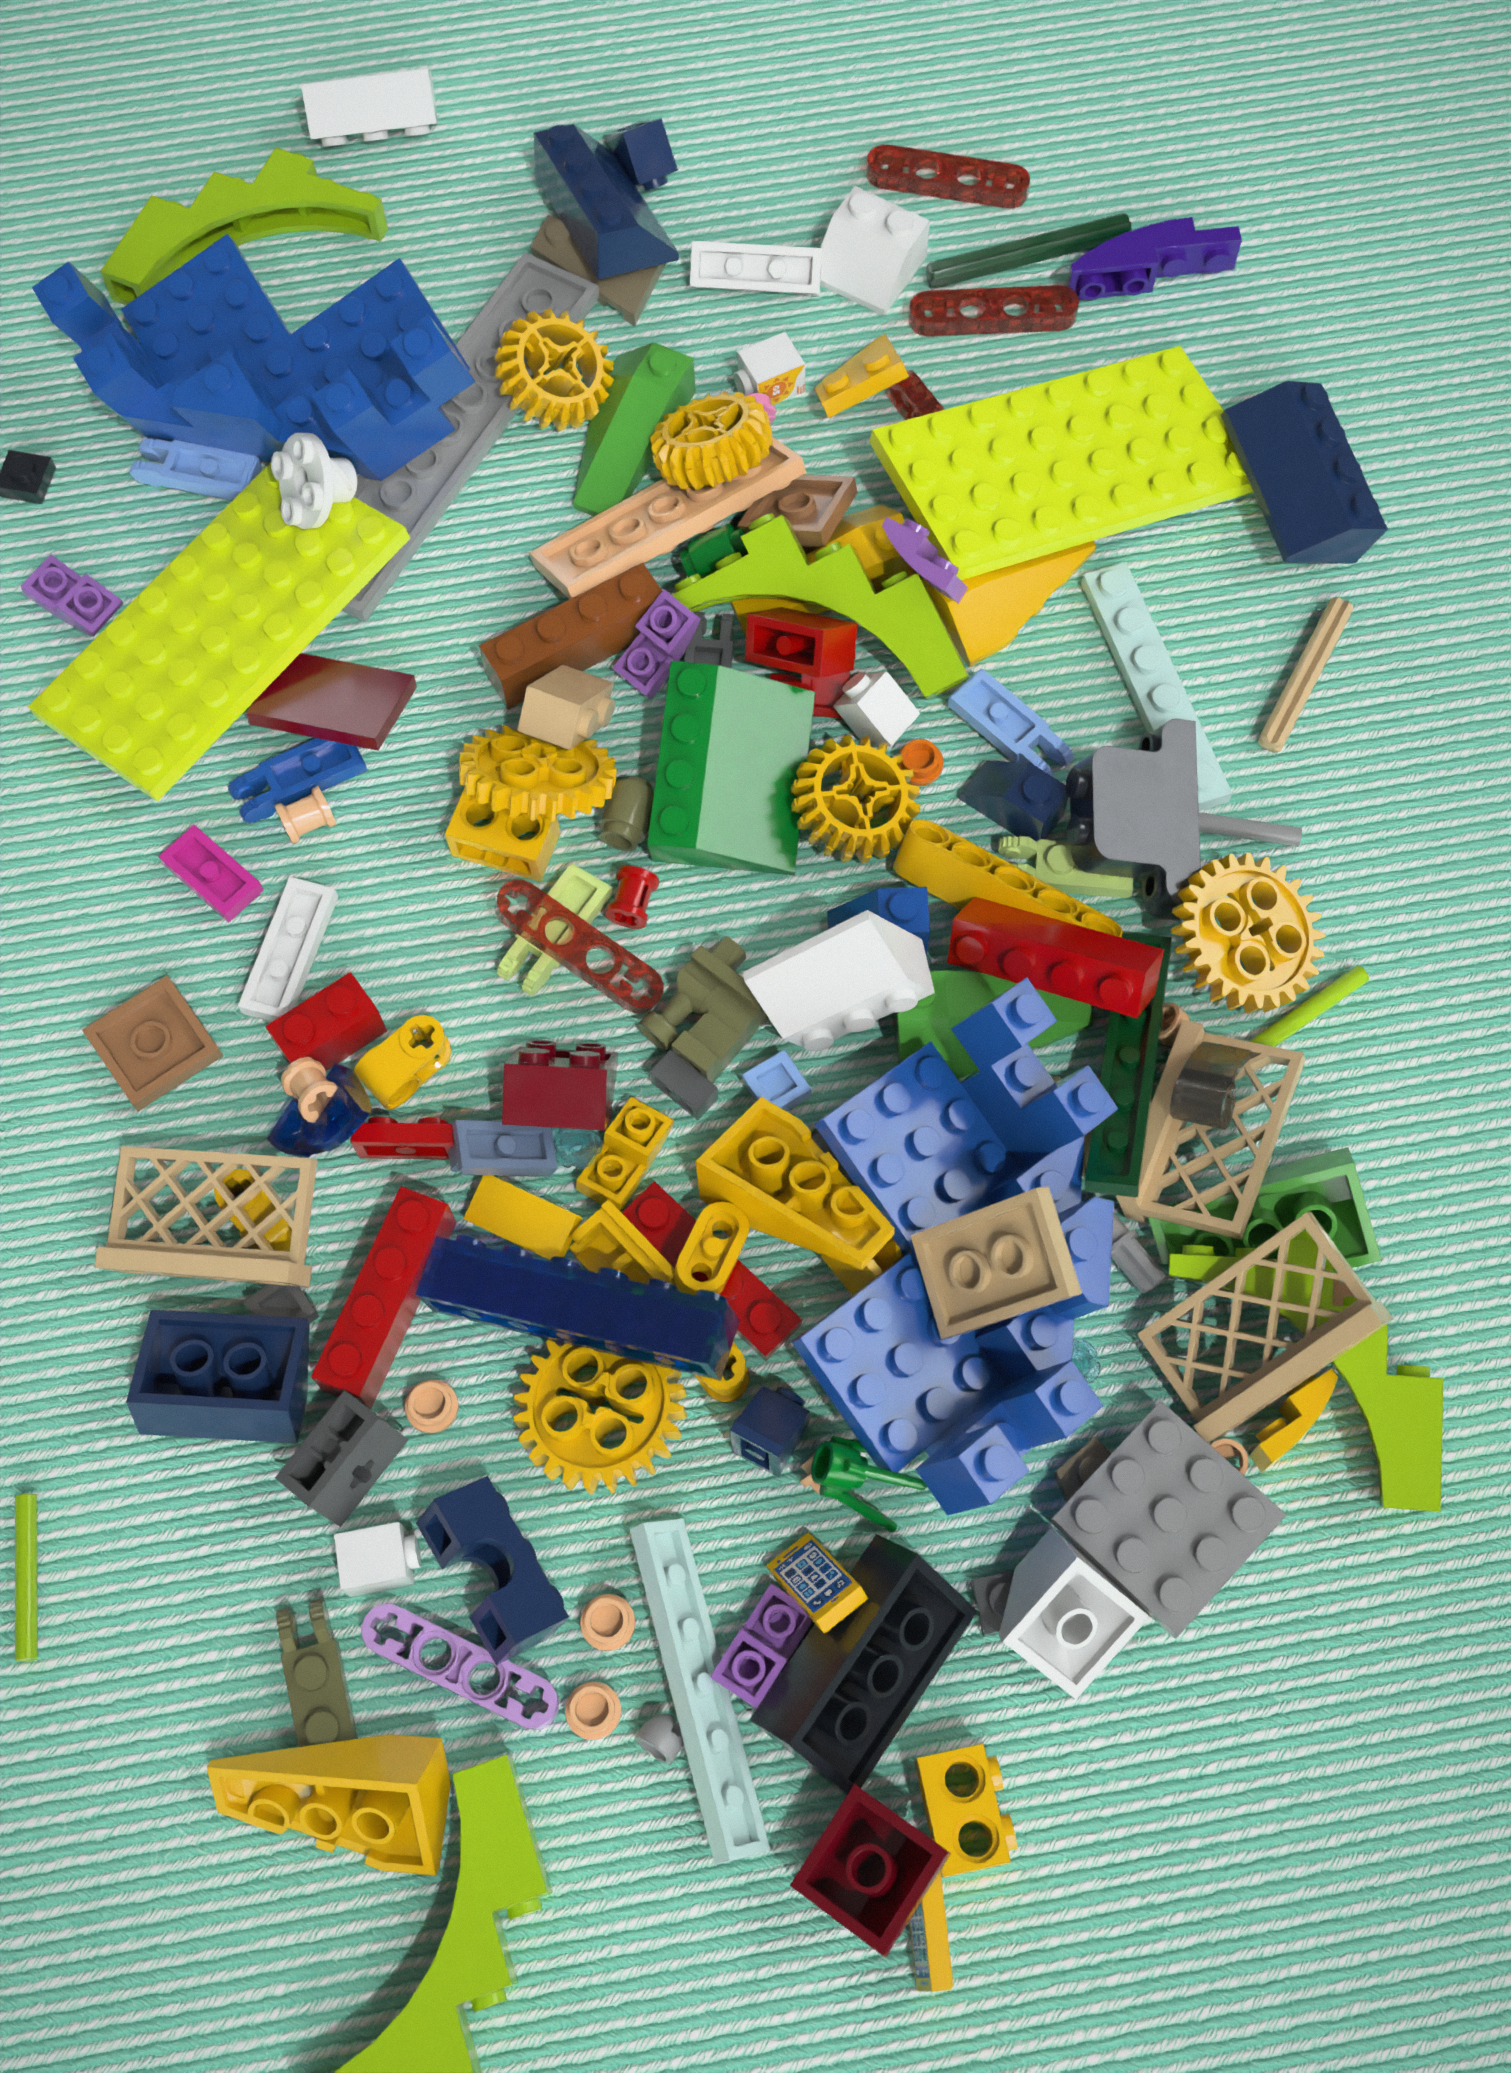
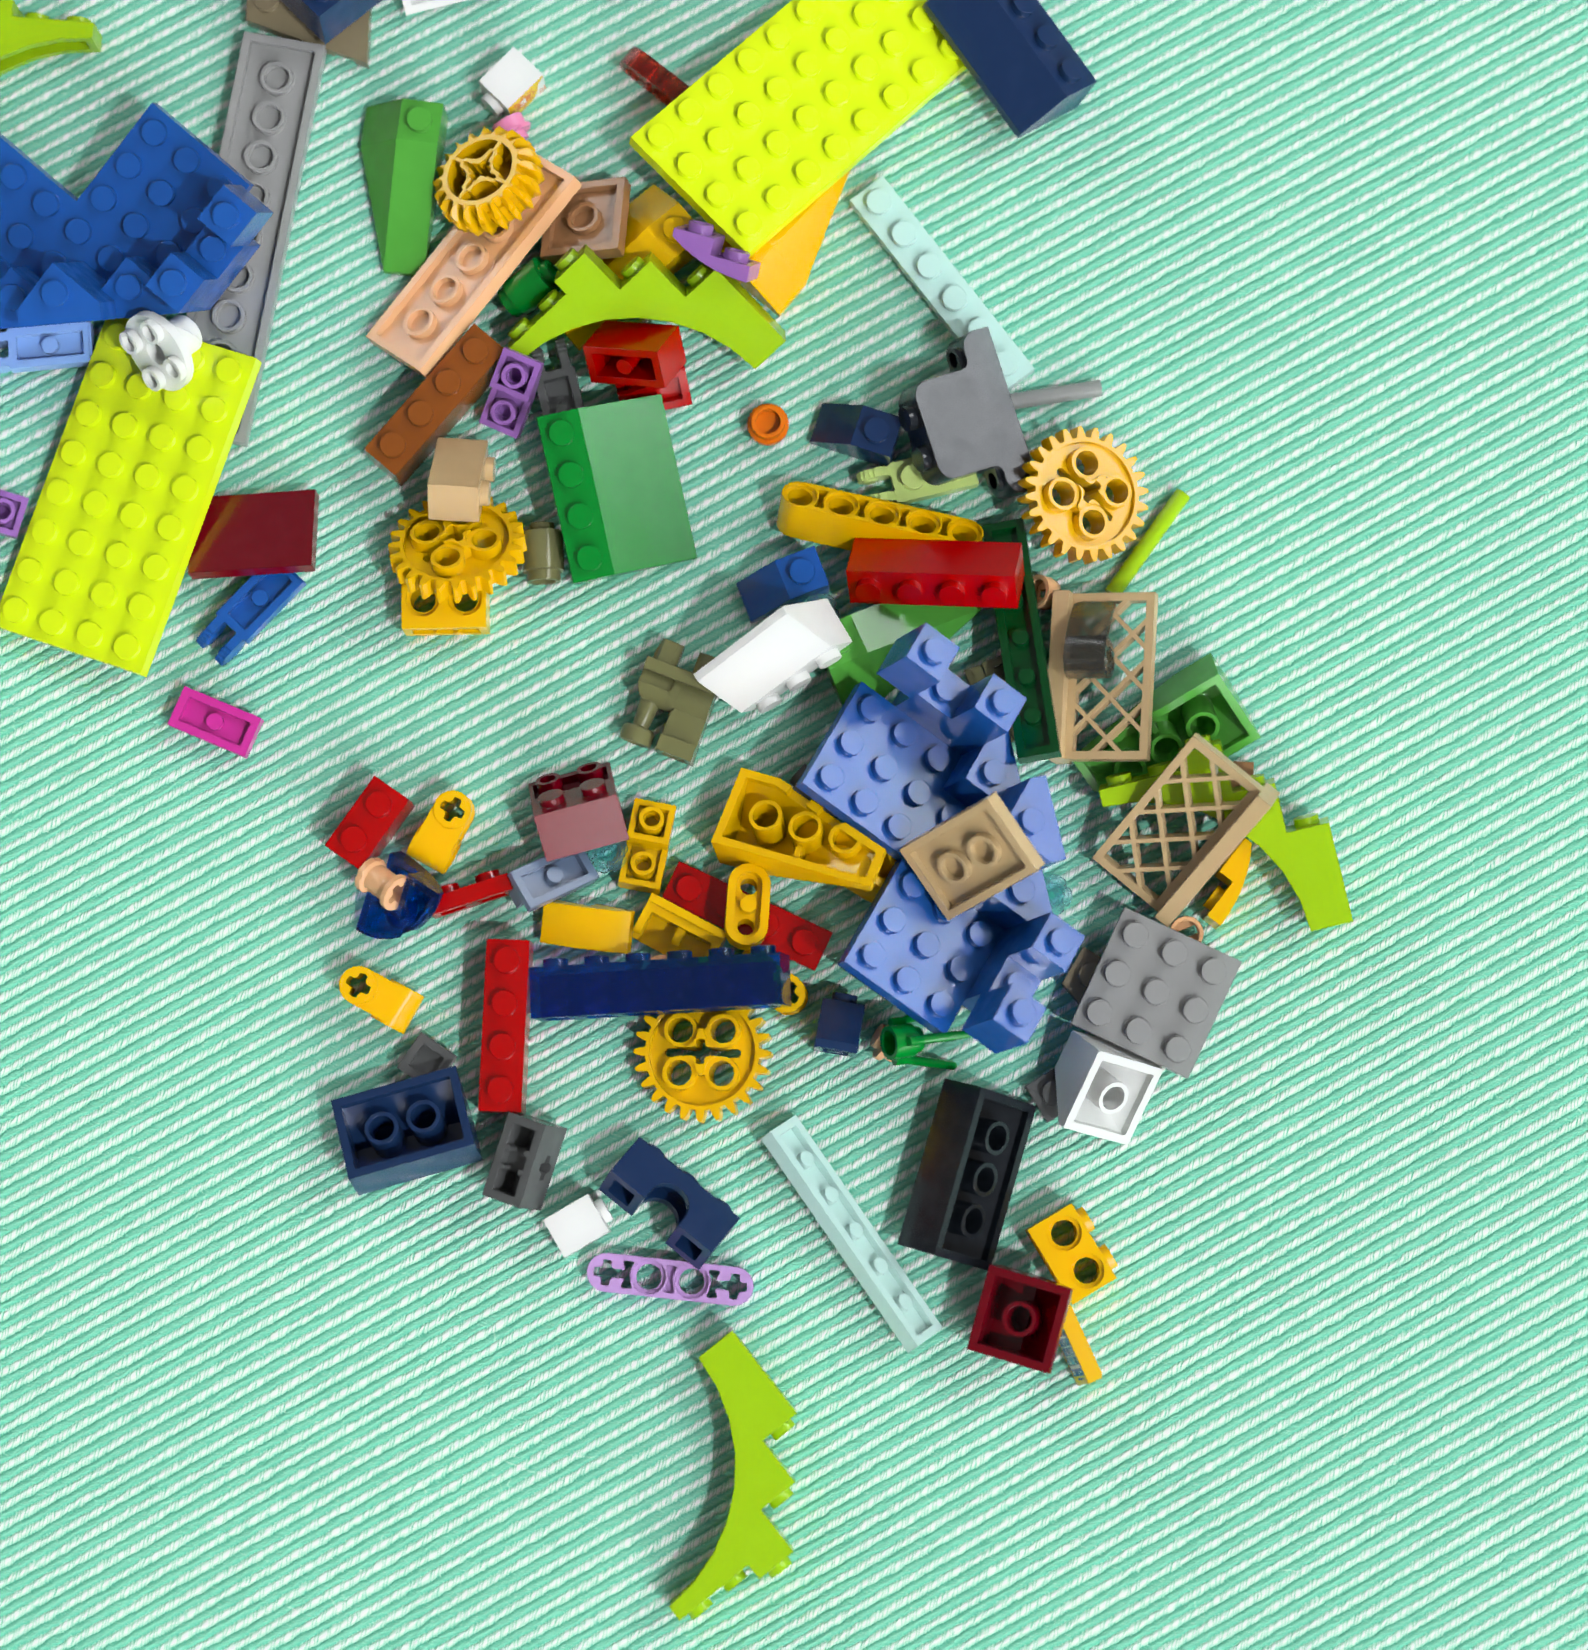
camera: 20 degrees left, 15 degrees up
(26, 1578) = (317, 1328): lime bar -> none
(152, 1043) = (231, 883): medium nougat plate -> none
(214, 1261) = (354, 1049): tan fence -> none
(288, 949) = (308, 767): white plate -> none
(305, 815) = (273, 644): light nougat bush -> none
(316, 1680) = (571, 1331): olive hinge -> none
(362, 1794) = (638, 1392): yellow wedge -> none
(431, 1406) = (573, 1096): light nougat plate -> none
(547, 346) = (352, 163): yellow gear -> none
(580, 894) = (520, 671): yellowish green hinge -> none
(584, 939) = (549, 682): clear red beam -> none
(593, 1710) = (780, 1276): light nougat plate -> none
(607, 1622) = (767, 1209): light nougat plate -> none
(632, 897) = (573, 626): red bush -> none
(661, 1738) = (836, 1278): light grey hinge -> none
(684, 1084) = (673, 773): dark grey piece -> none
(762, 1647) = (888, 1187): medium lavender slope -> none
(777, 1082) = (747, 747): light blue plate -> none
(817, 1582) = (912, 1129): tile -> none
(861, 377) = (595, 64): yellow wing -> none
(876, 707) = (717, 392): white brick -> none
(885, 789) = (733, 495): yellow gear -> none
(1007, 722) = (830, 364): light blue hinge -> none
(1134, 1258) = (1062, 790): light grey axle -> none
(1305, 675) = (1064, 233): tan axle -> none

